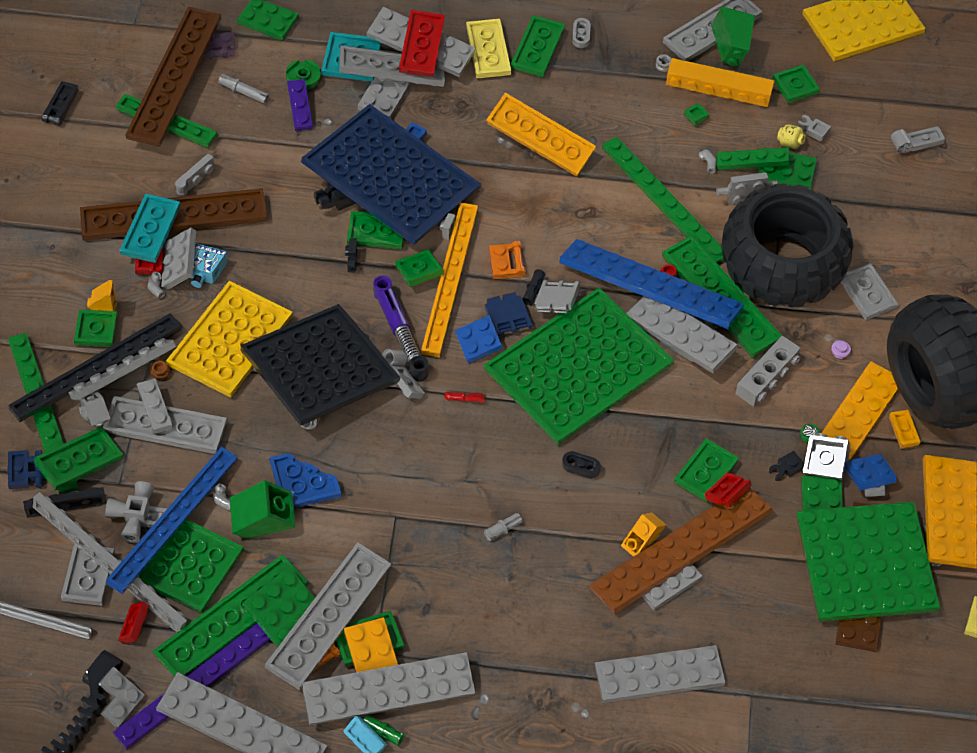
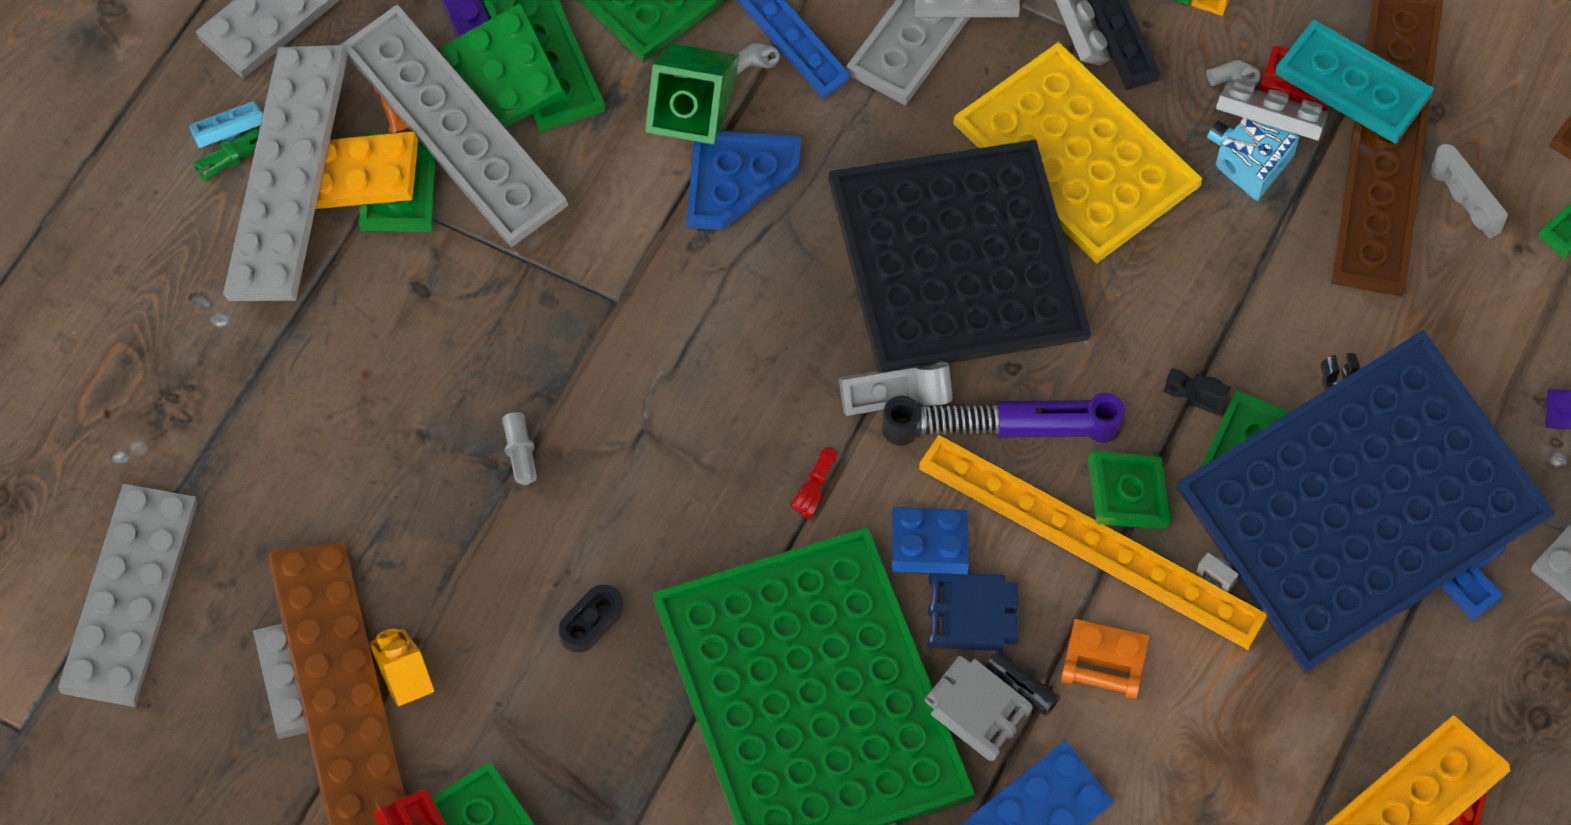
camera: 110 degrees right, 5 degrees up
(160, 370) = (1046, 34): dark orange plate -> none

